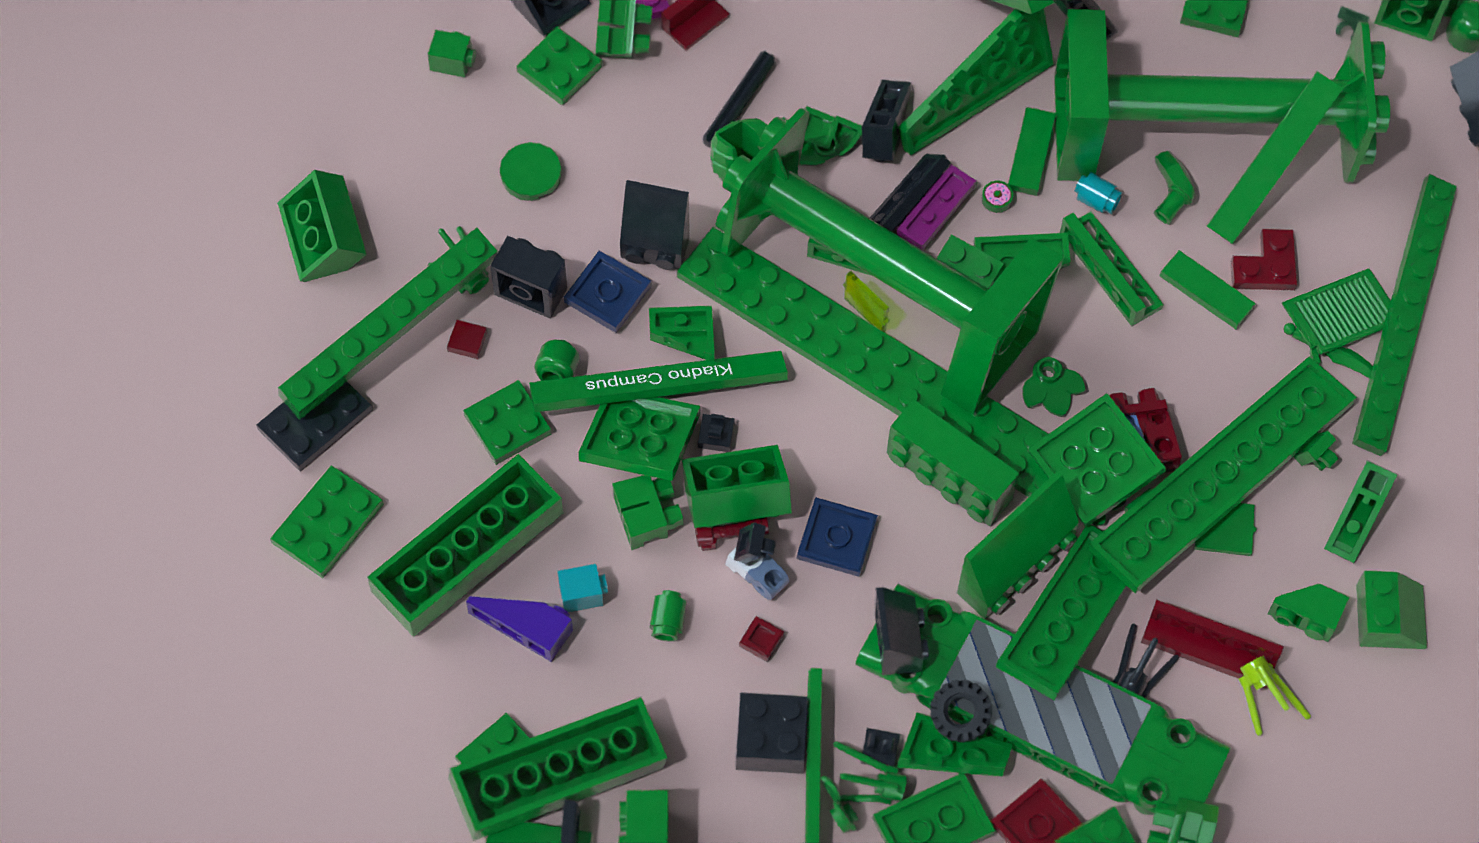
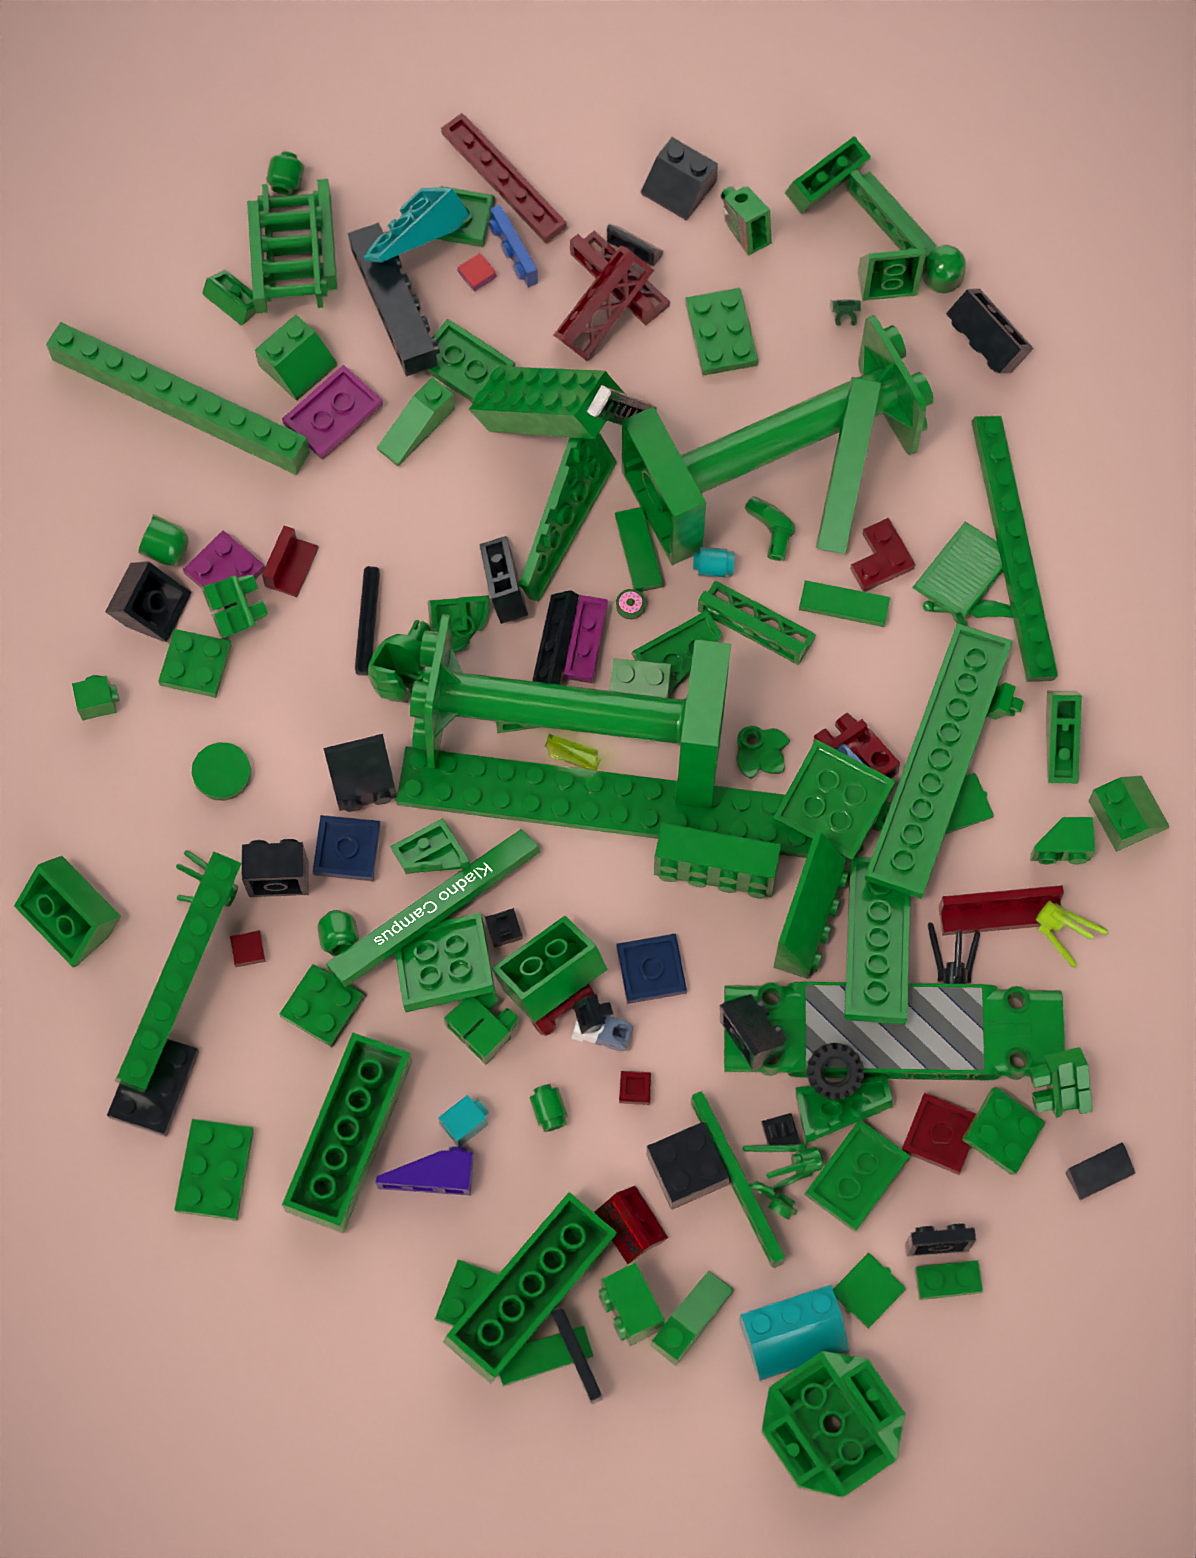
camera: 25 degrees left, 5 degrees up
(689, 761) = (633, 1222): none -> dark red panel

